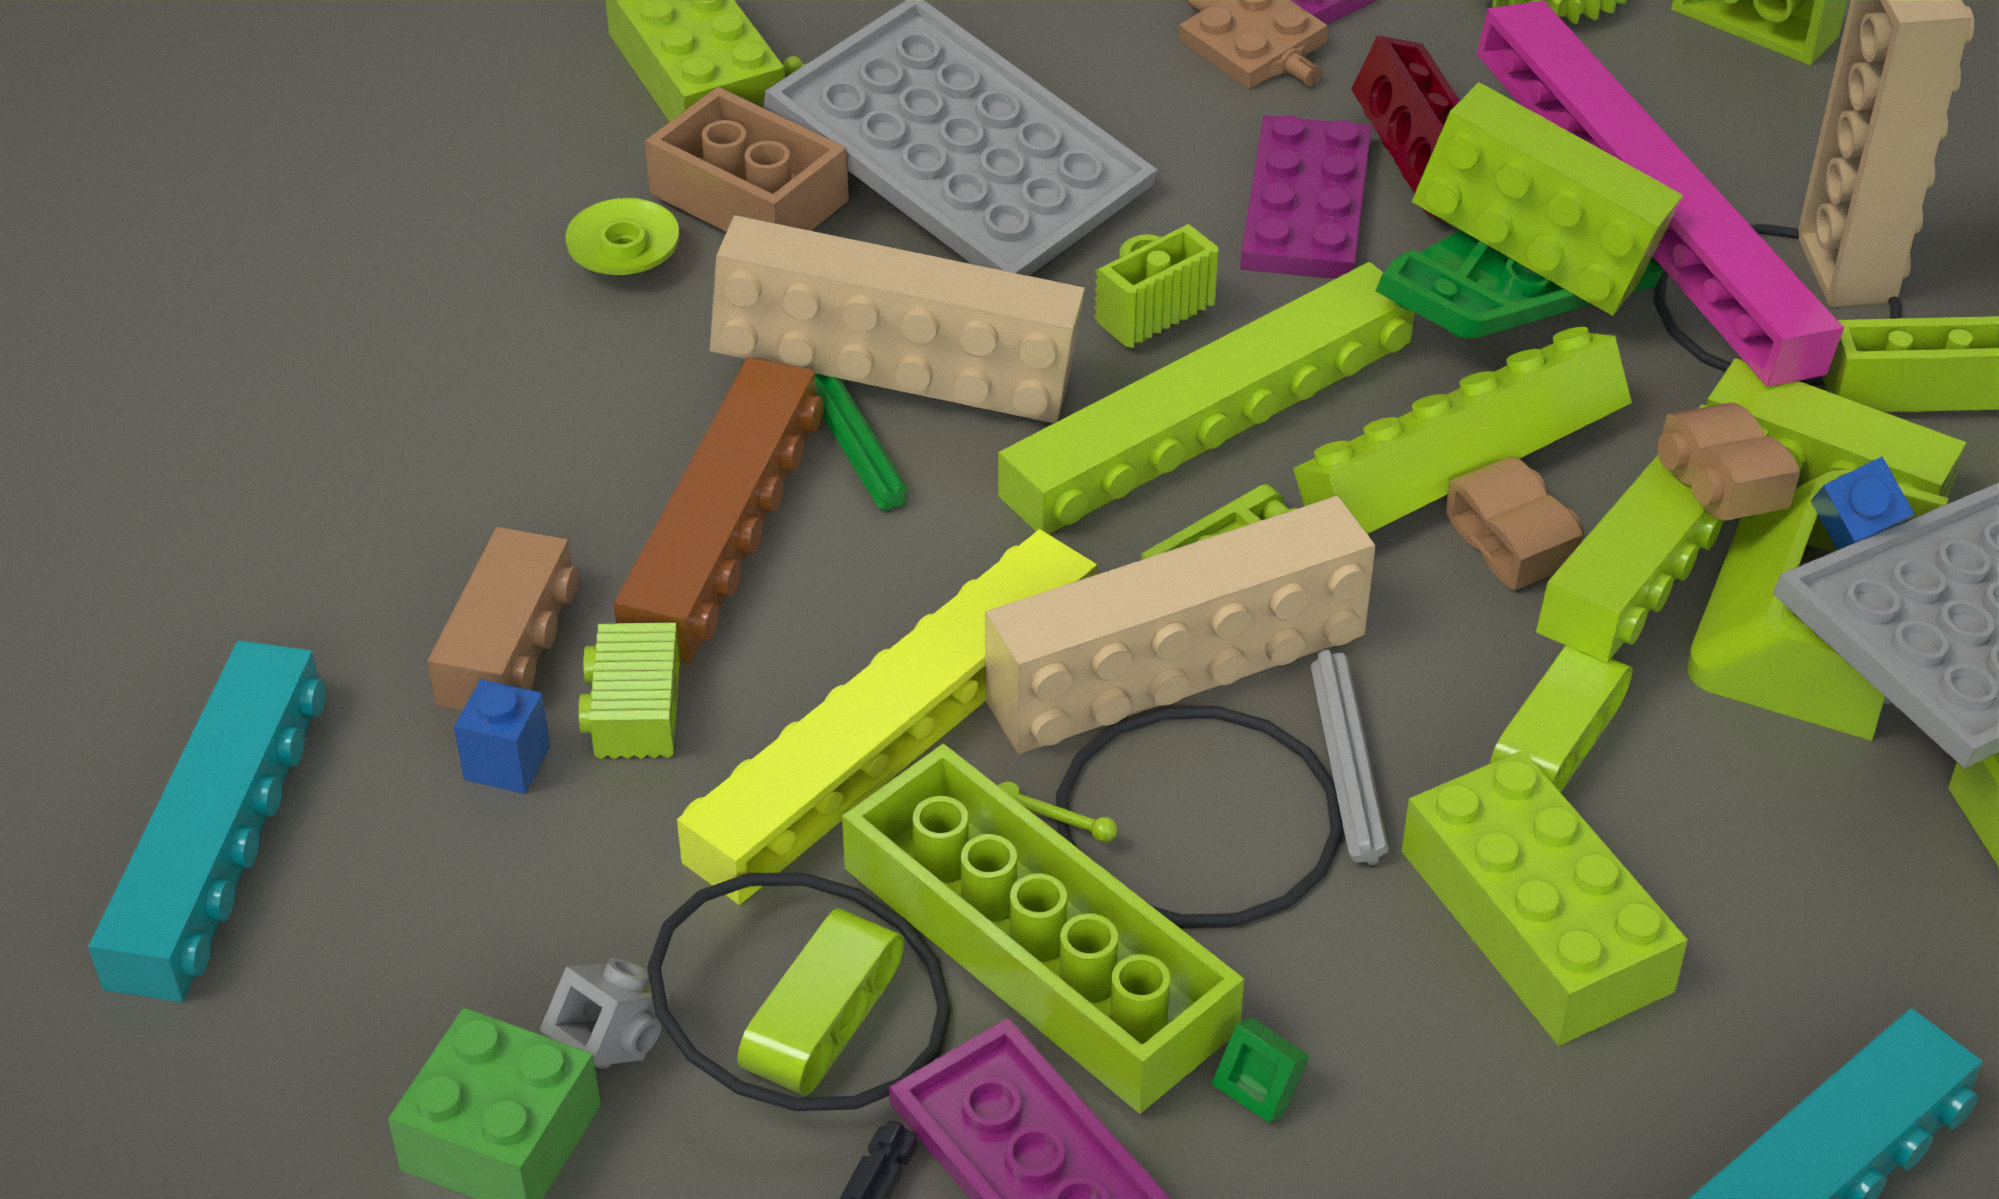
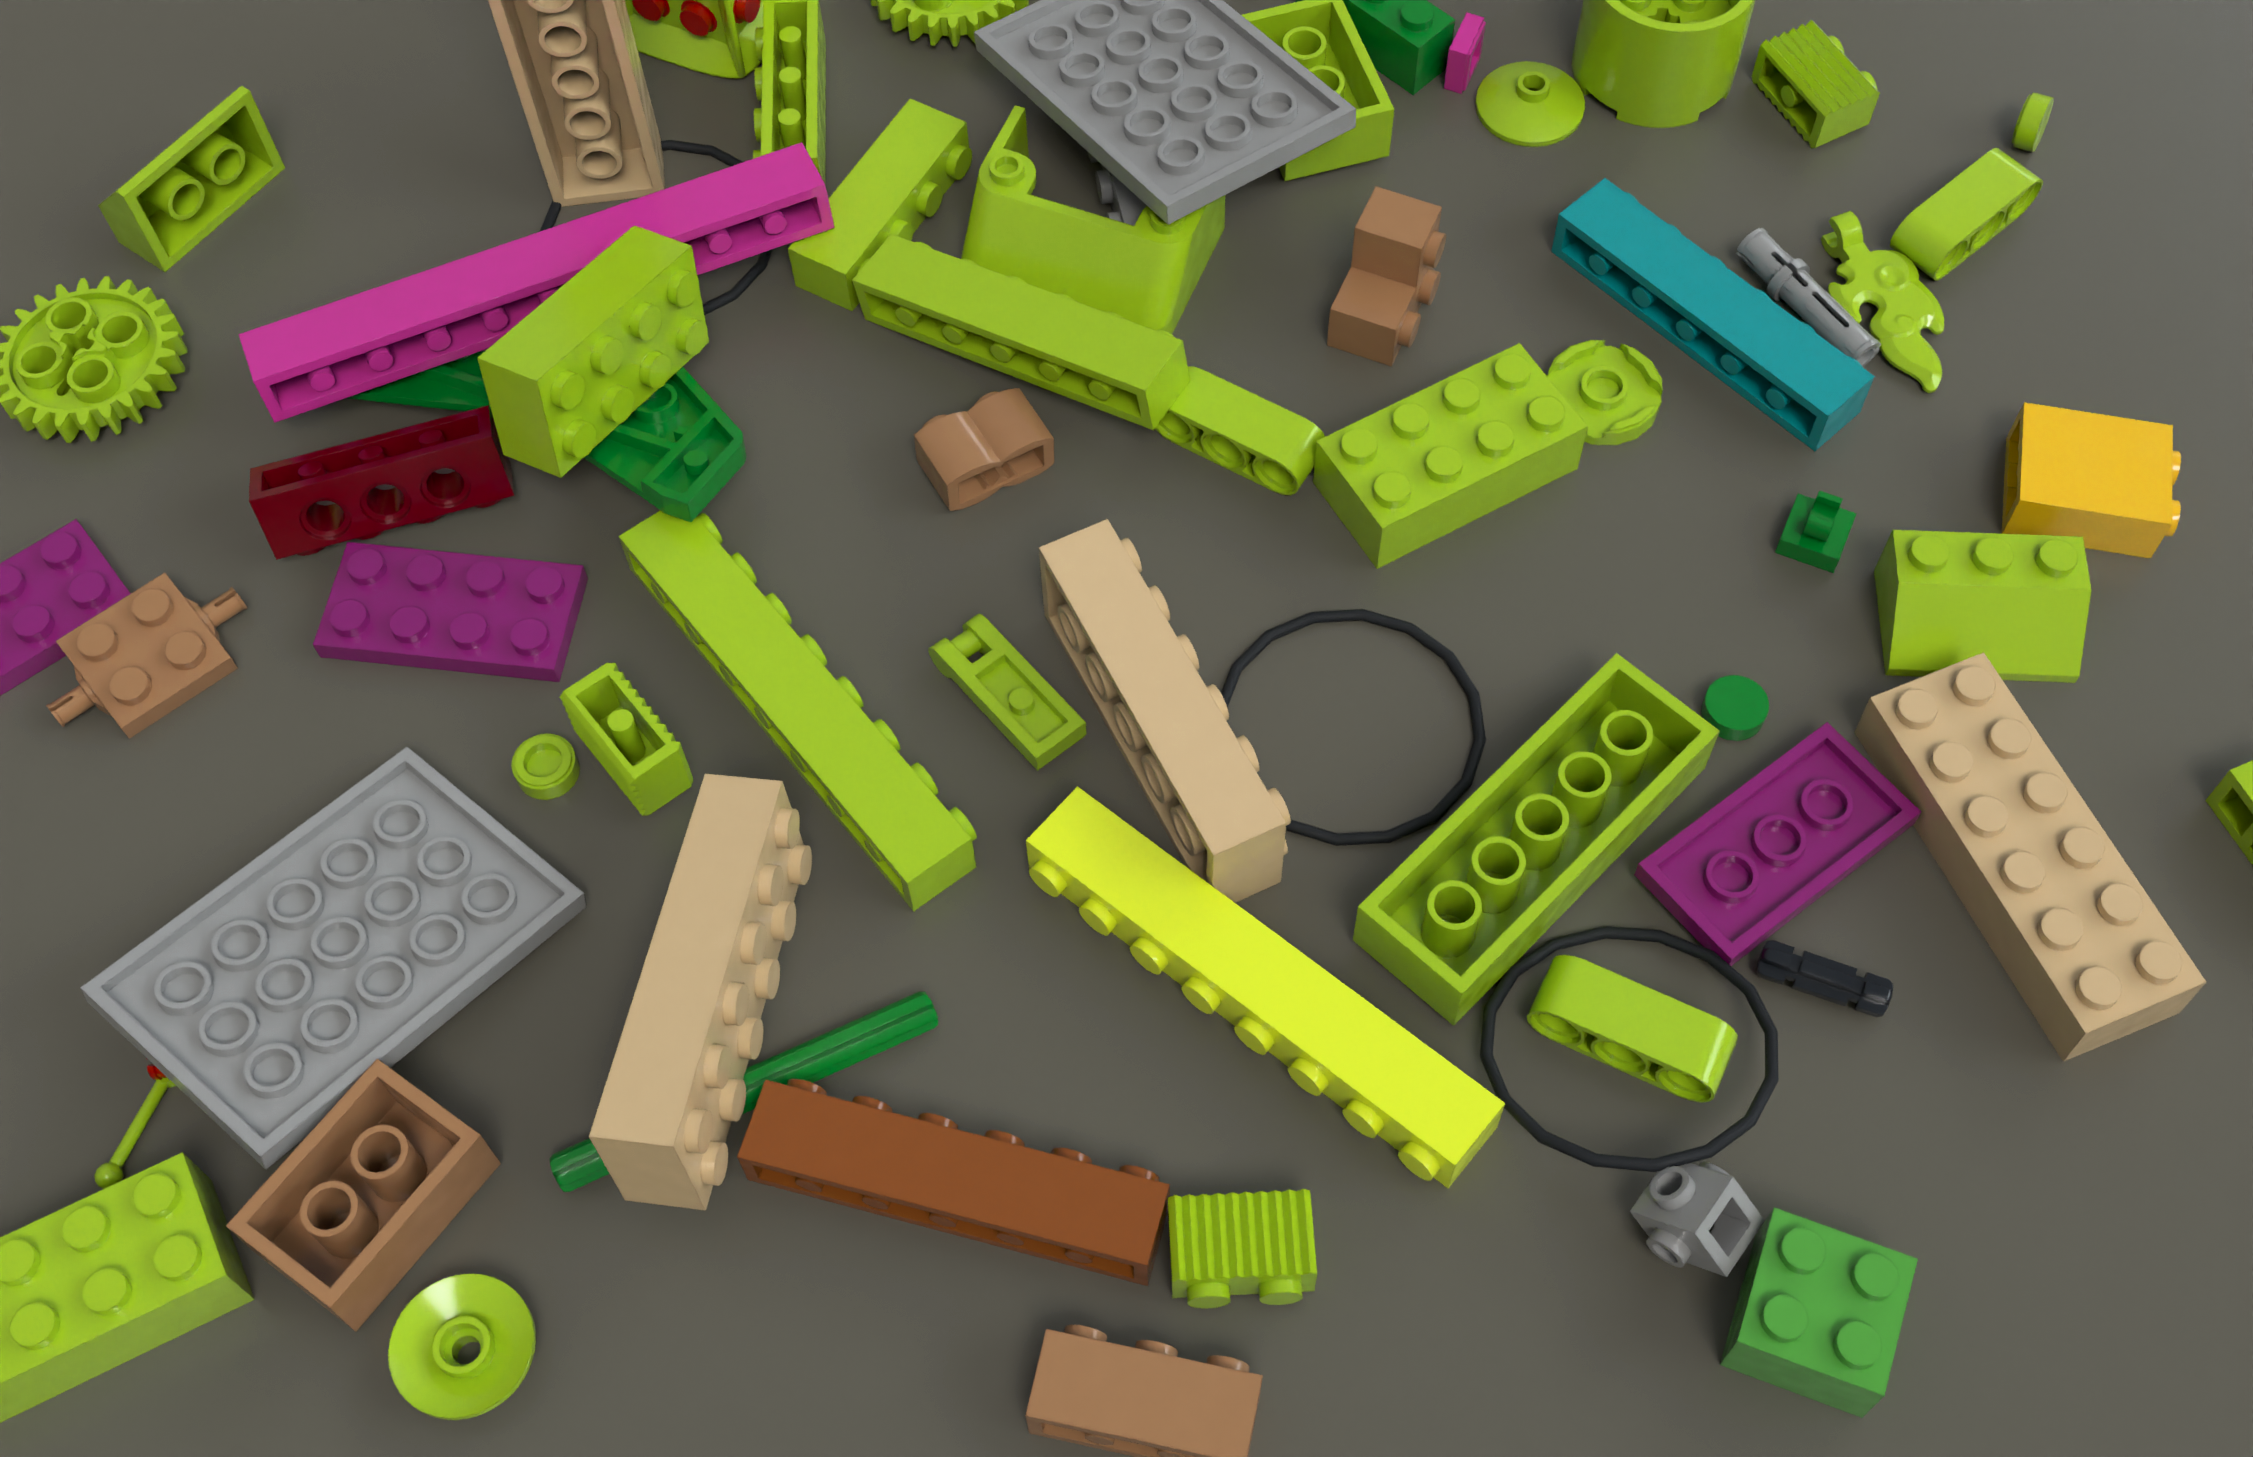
camera: 90 degrees left, 15 degrees up
(502, 736) = (1327, 1375): blue brick -> none
(1102, 829) = (1344, 883): lime hinge -> none
(1219, 1151) = (1735, 707): none -> green tile
(1260, 1069) = (1665, 658): green tile -> none
(1349, 758) = (1284, 597): light grey axle -> none
(1489, 418) = (879, 476): lime brick -> none
(1670, 1074) = (1609, 389): none -> lime tile
(1728, 461) = (975, 248): medium nougat brick -> none
(1782, 850) = (1388, 277): none -> medium nougat brick
(1861, 504) = (1057, 151): blue brick -> none

